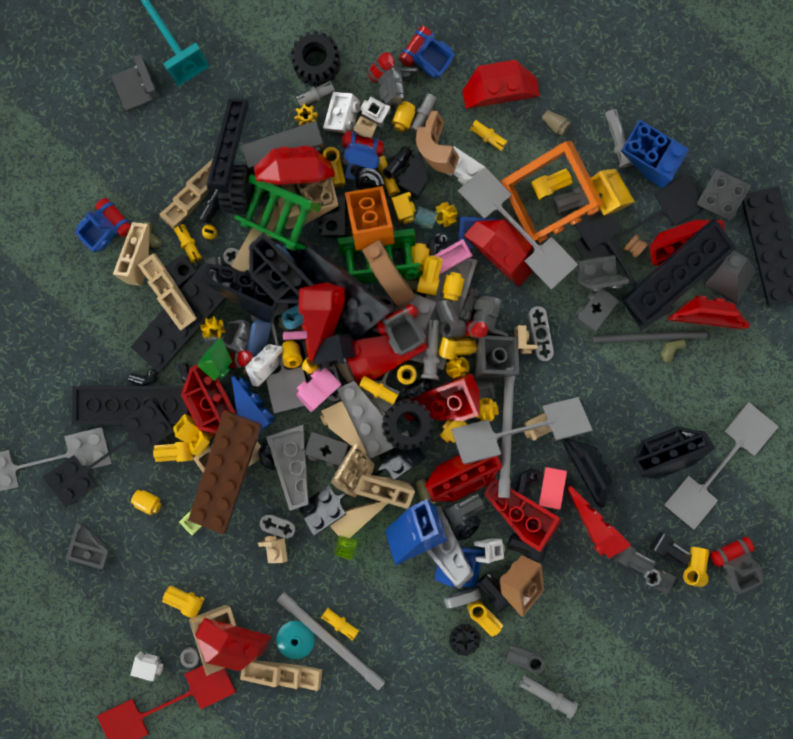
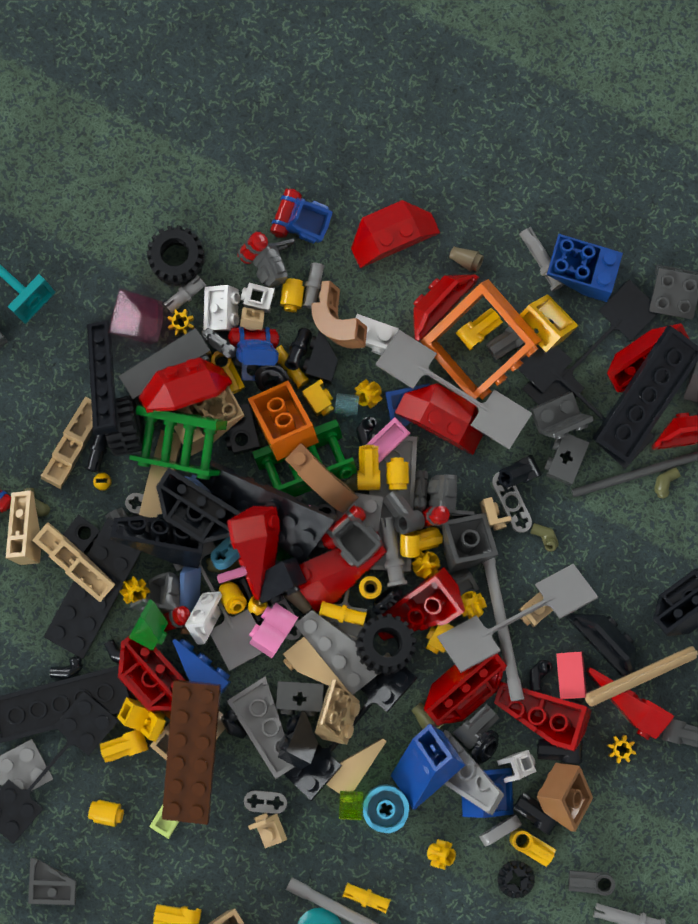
camera: 15 degrees left, 5 degrees down
(188, 243) = (80, 501): yellow pin -> none
(270, 102) = (137, 317): none -> clear pink slope
(316, 486) = (299, 743): none -> black slope
(332, 140) = (219, 343): none -> dark grey axle
(366, 565) = (380, 820): none -> medium azure brick
(385, 490) = (379, 726): tan slope -> none
(409, 605) = (441, 854): none -> yellow gear
(419, 254) = (350, 447): yellow brick -> none
(488, 135) = (393, 292): yellow pin -> none
(524, 152) = (439, 301): none -> red wedge
(554, 311) = (520, 471): none -> black piece
(563, 369) = (548, 536): none -> olive arm
(579, 563) = (617, 742): none -> yellow gear
(610, 504) = (641, 676): none -> tan axle
(635, 246) = (592, 375): medium nougat wheel -> none

